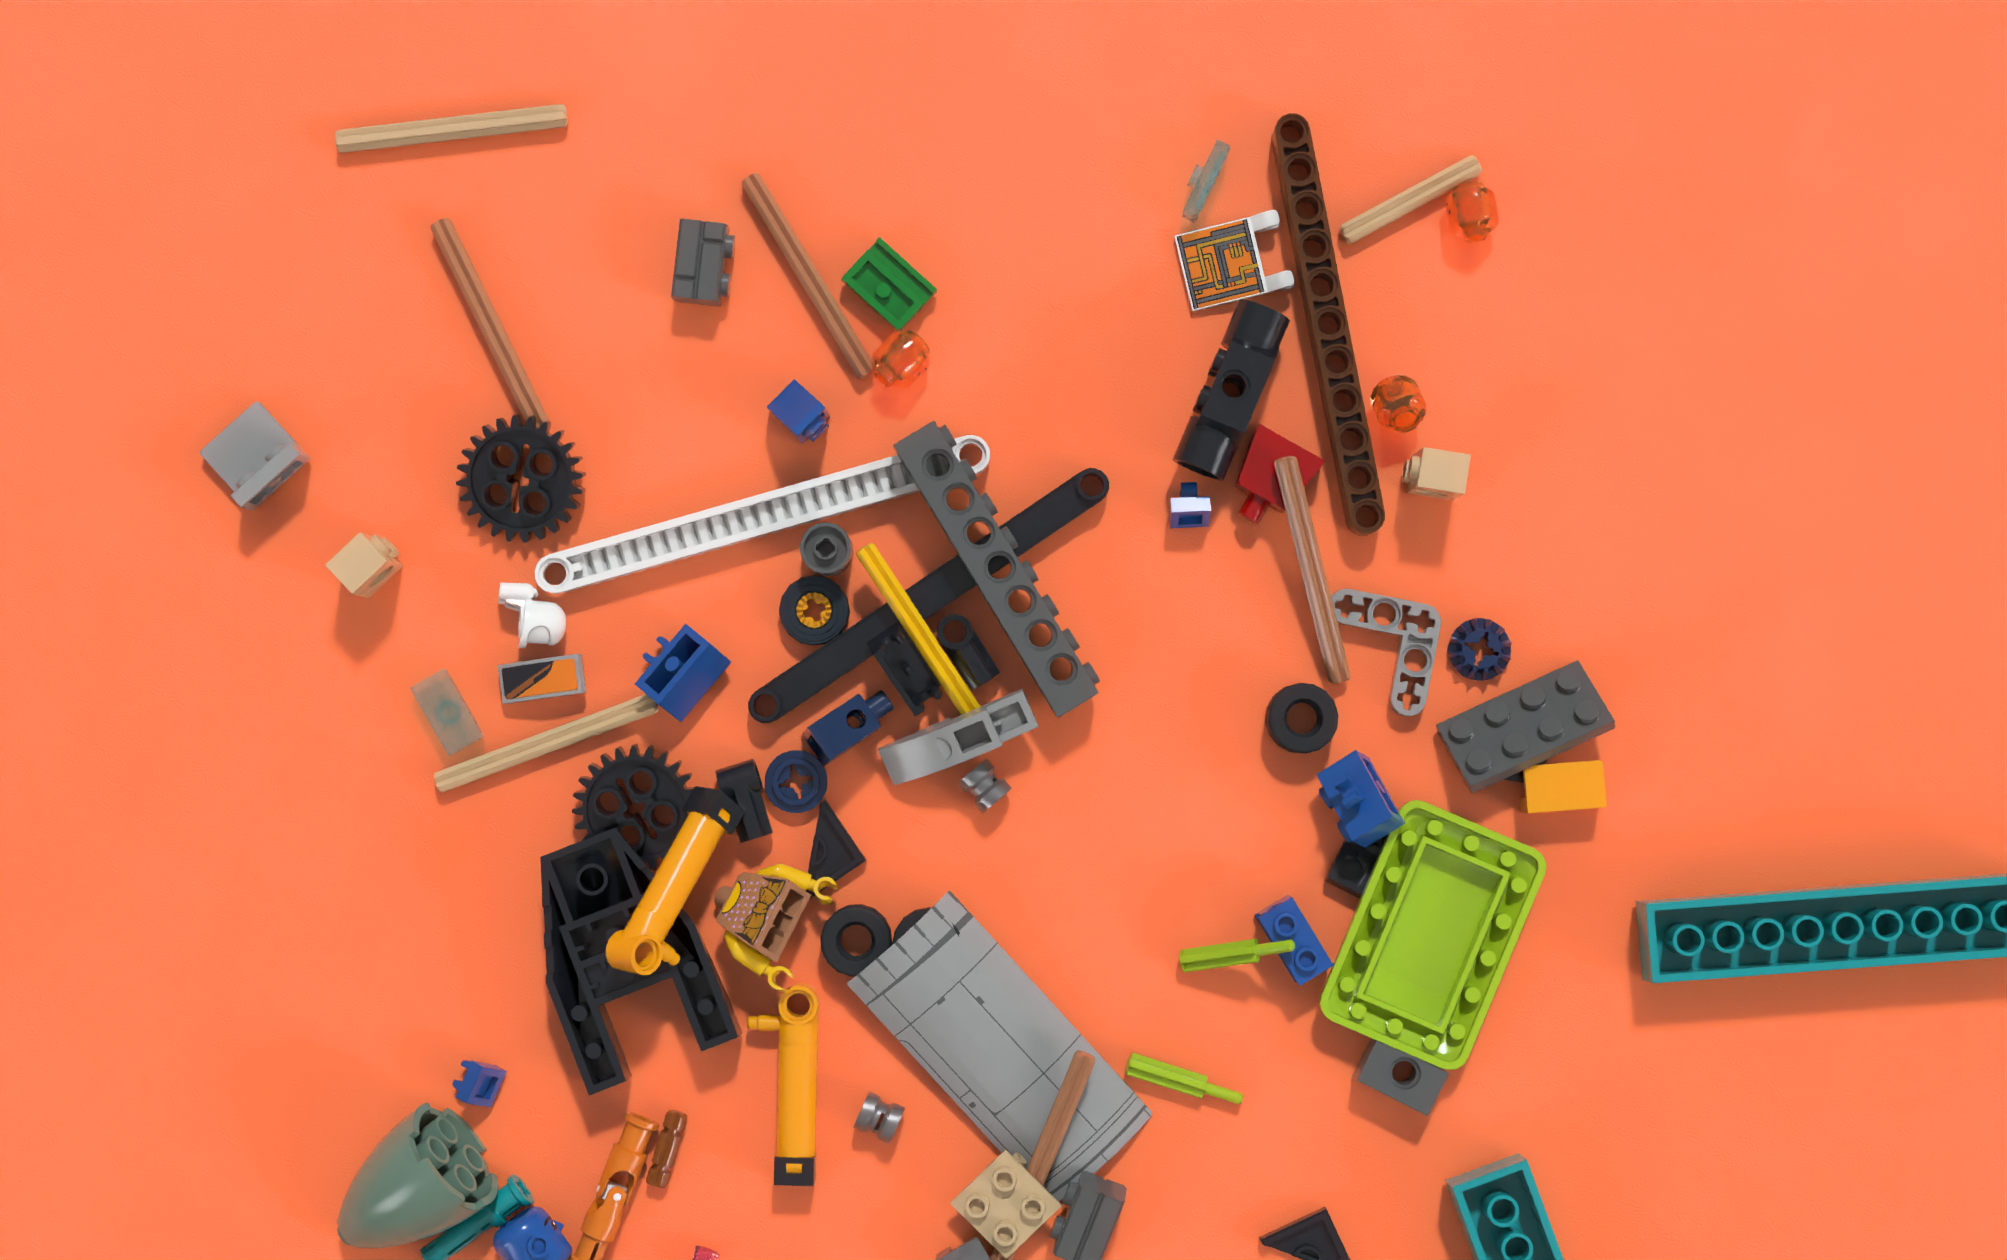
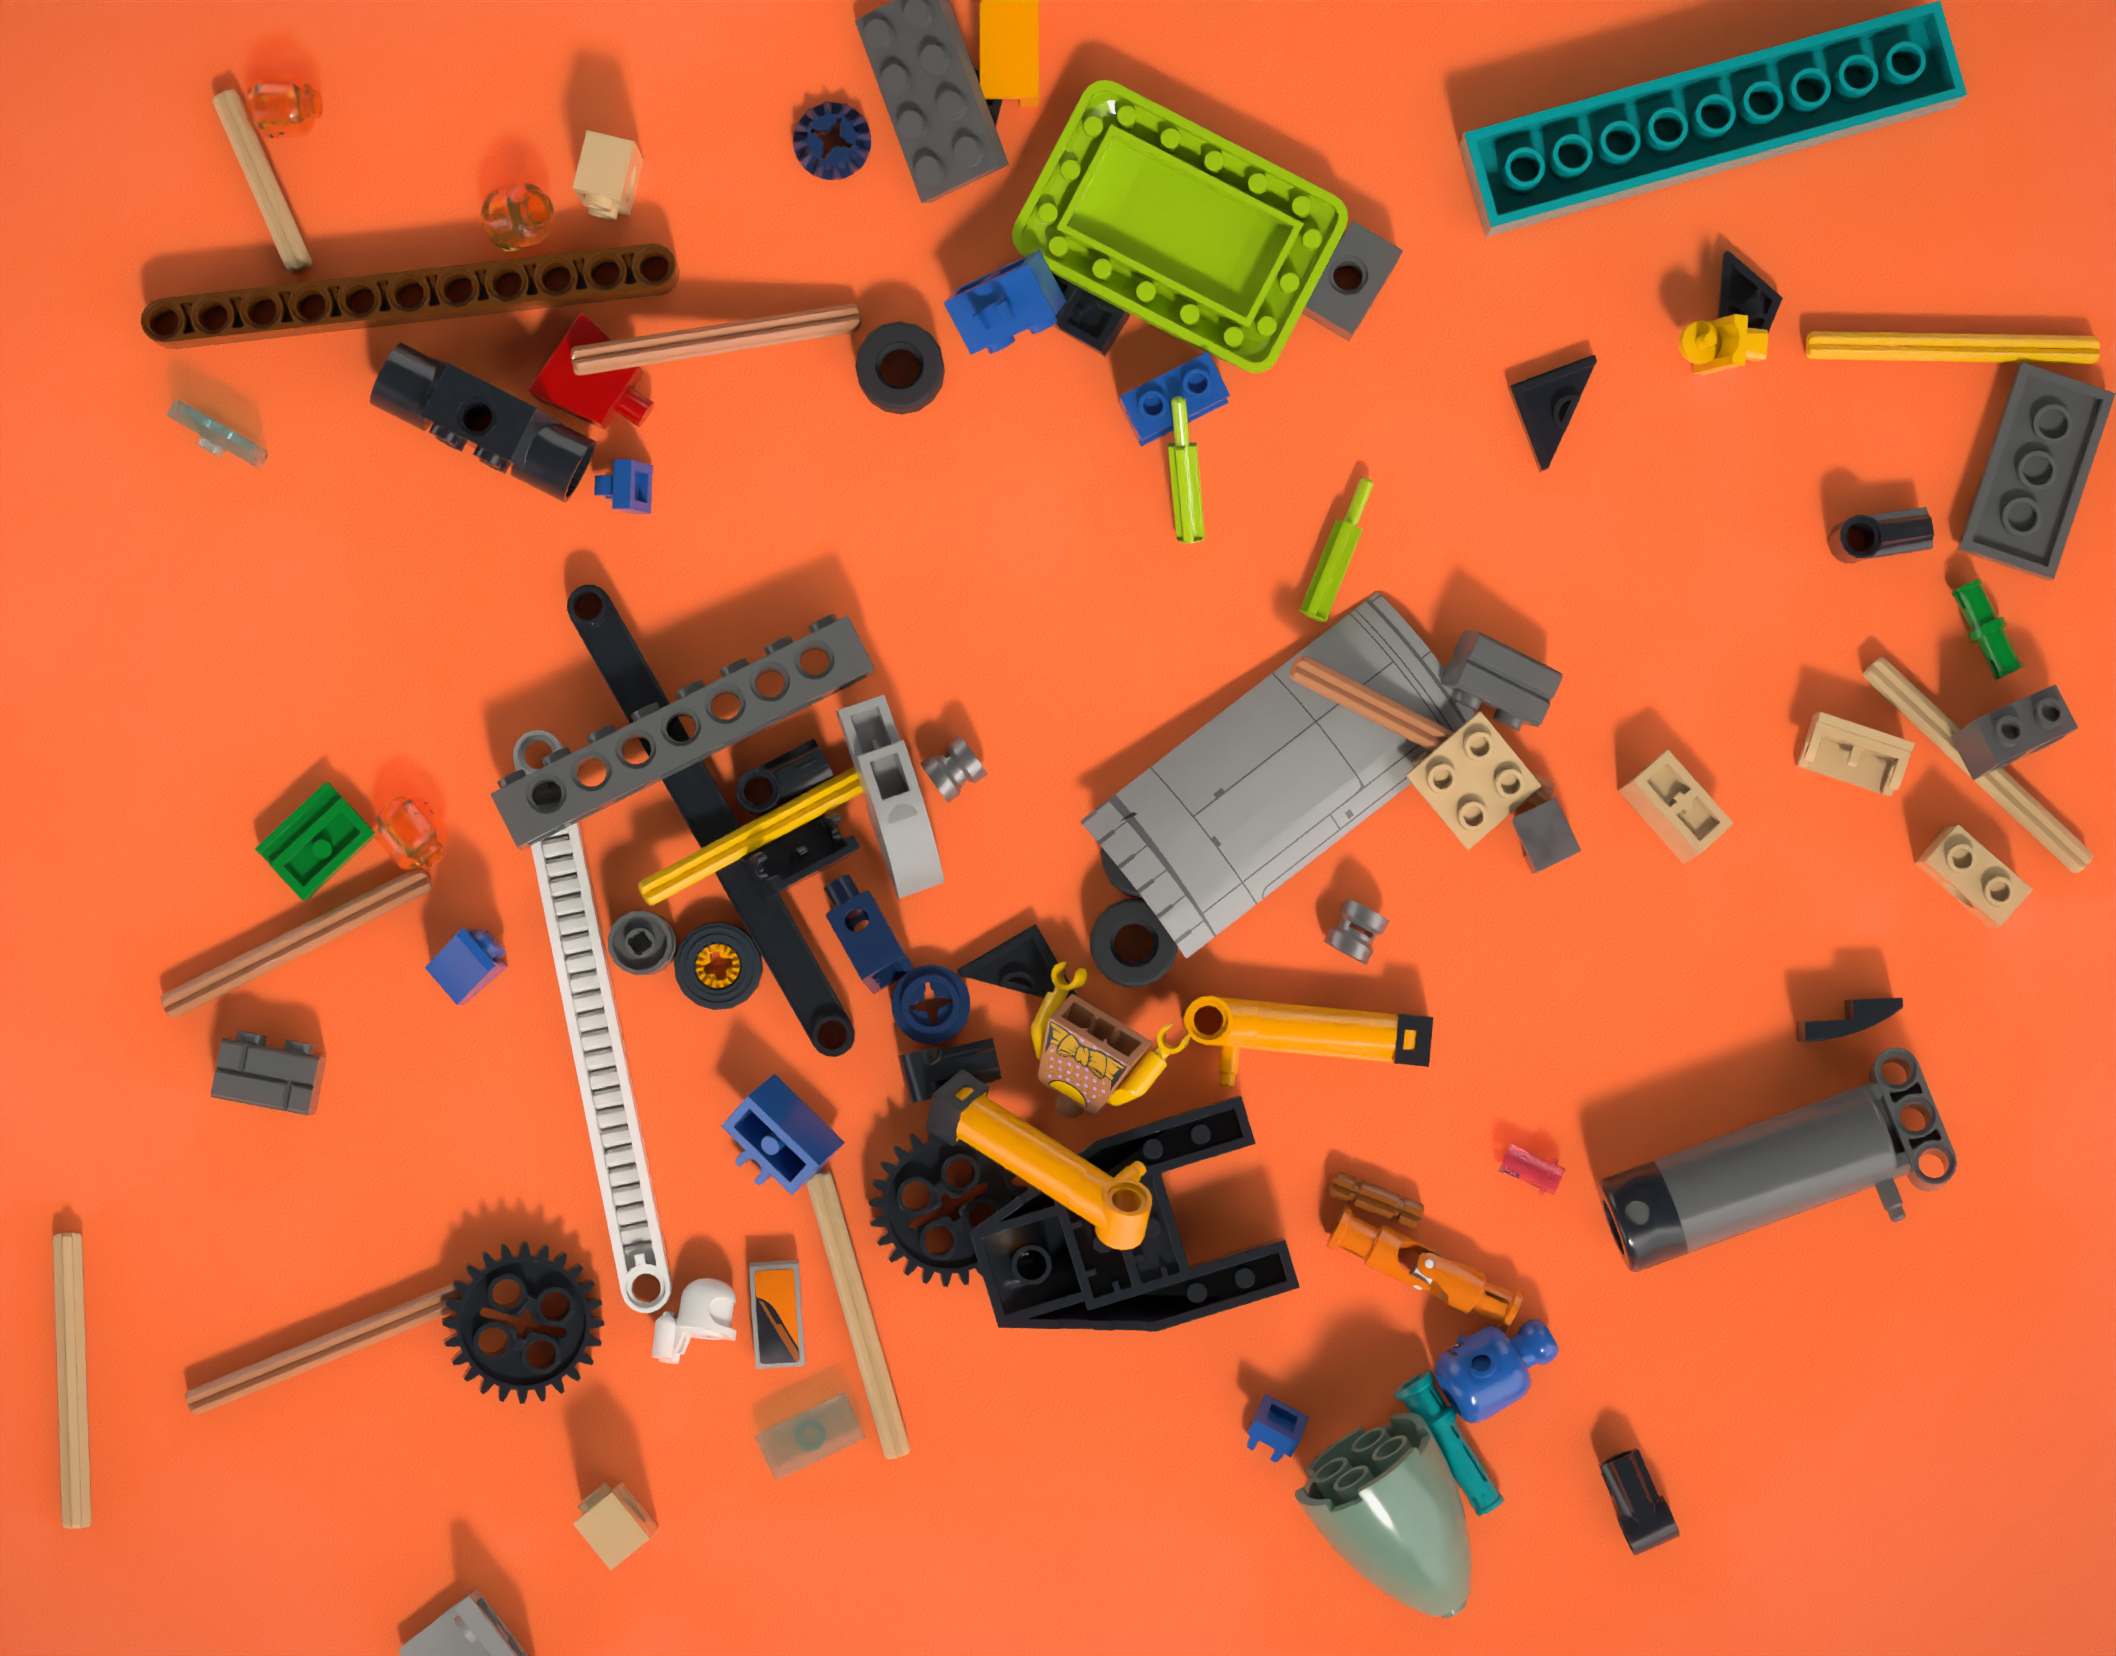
camera: 80 degrees left, 0 degrees up
(1225, 263) = (324, 418): flag -> none
(1409, 639) = (813, 227): light grey beam -> none

